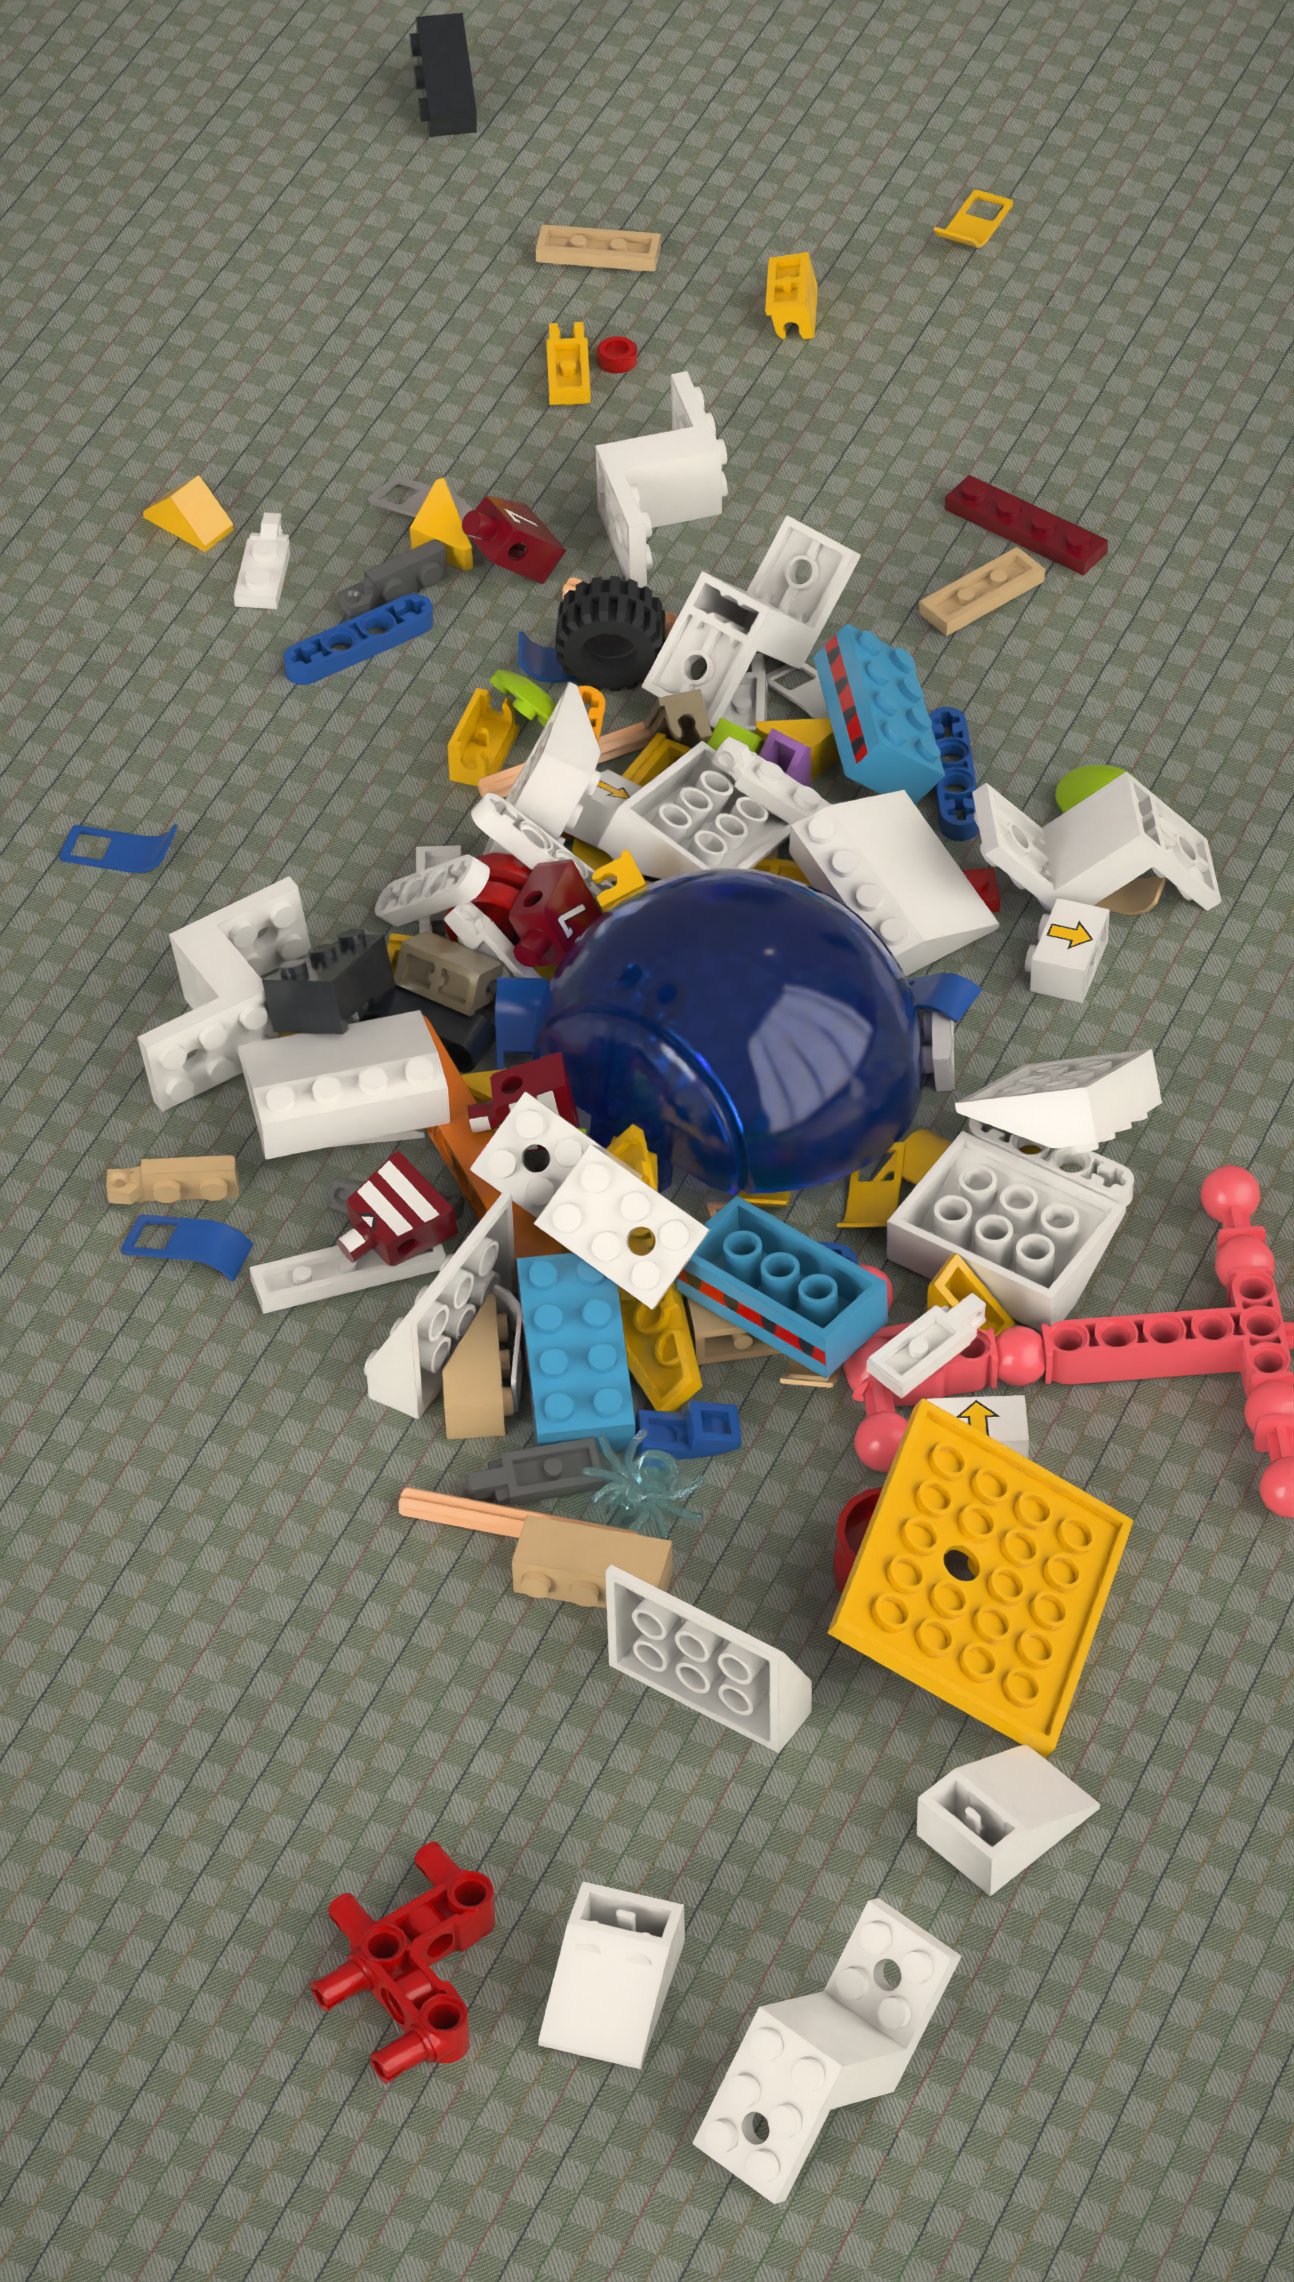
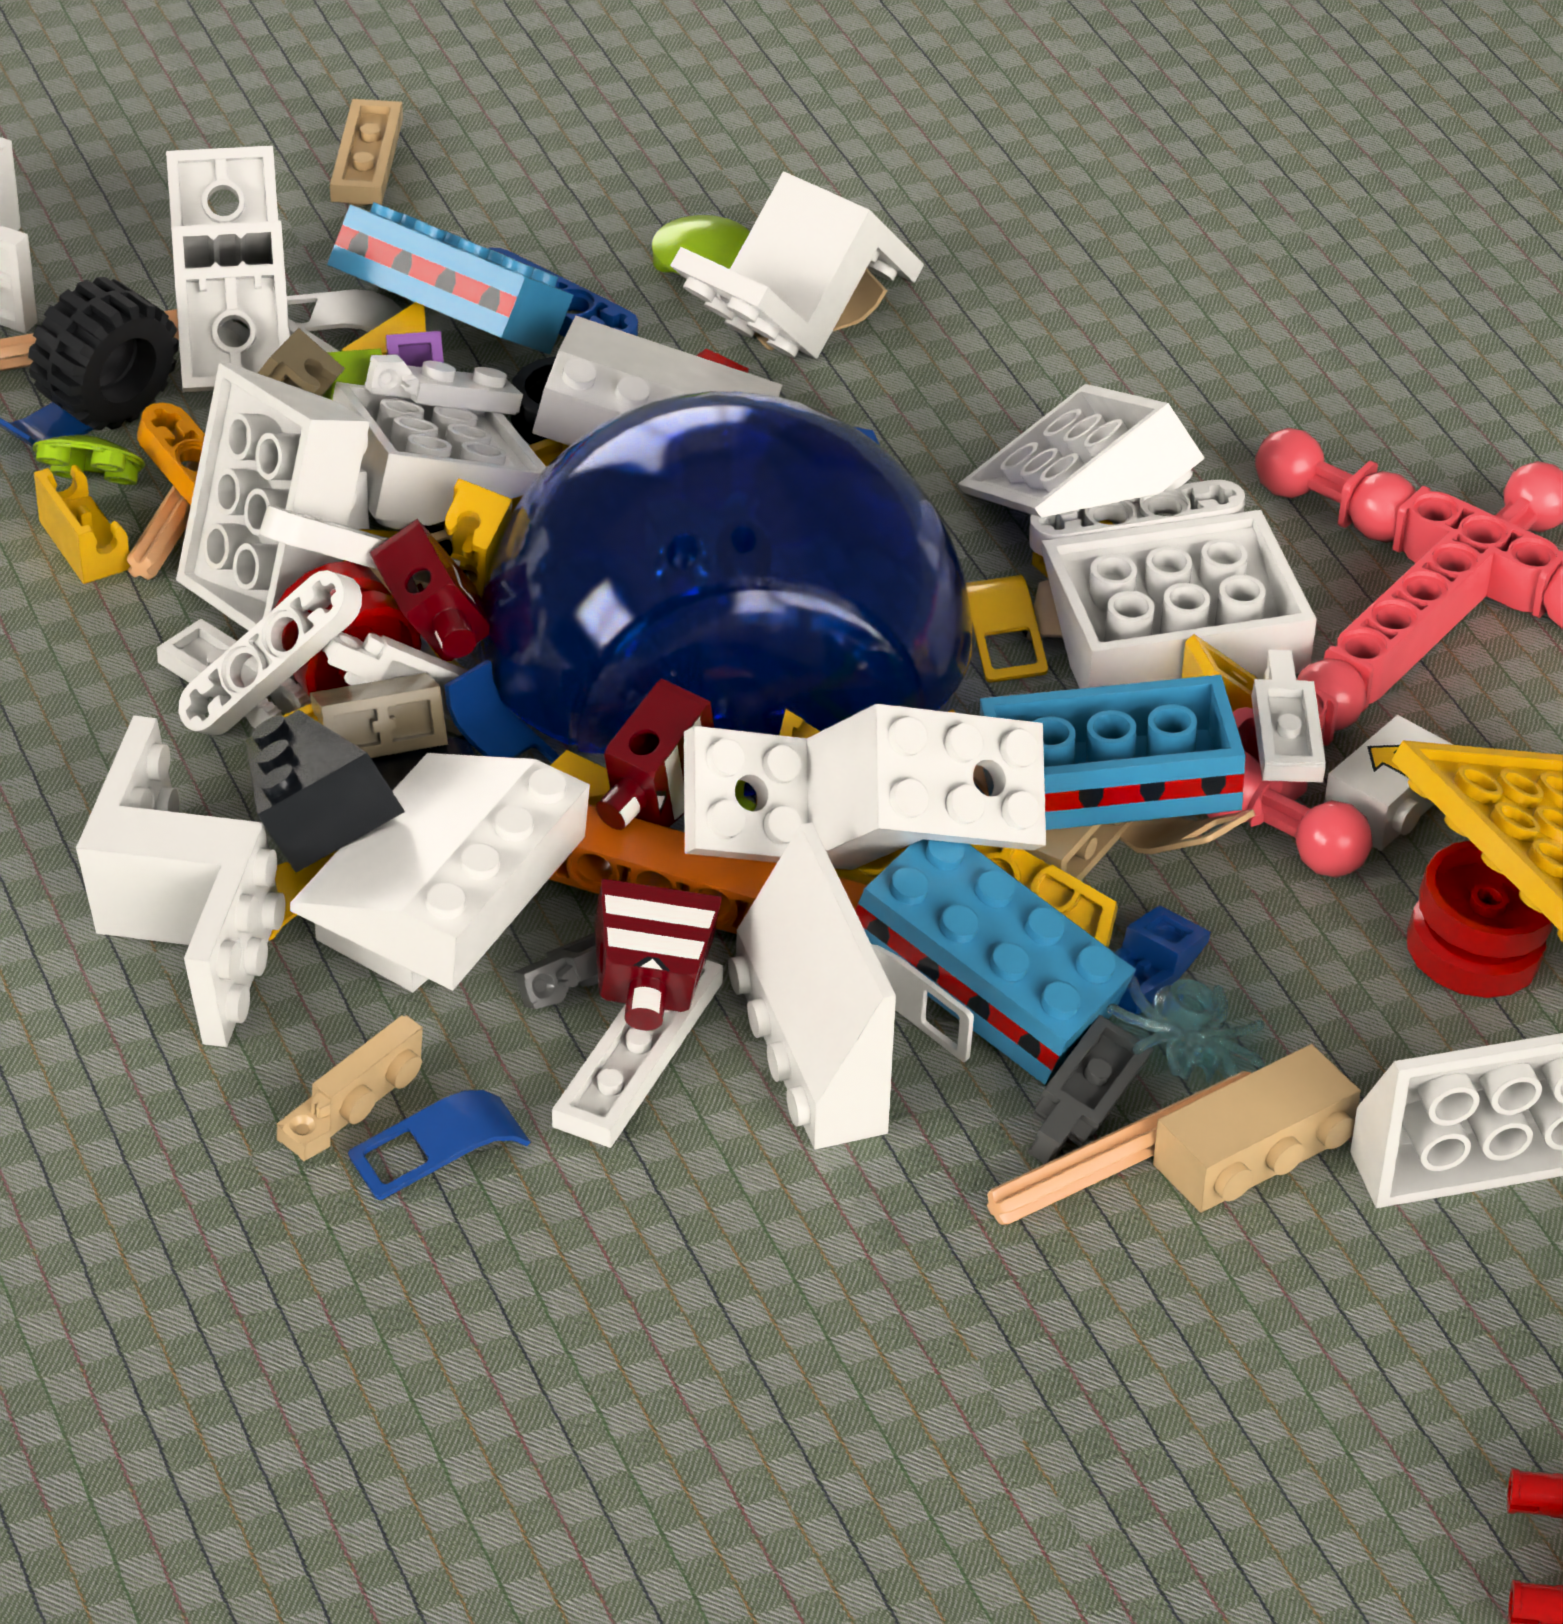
camera: 50 degrees left, 5 degrees down
(473, 1376) = (934, 1064): tan slope -> none
(874, 1201) = (1007, 665): yellow piece -> none
(1026, 525) = (319, 85): dark red plate -> none
(1068, 950) = (870, 369): white brick -> none

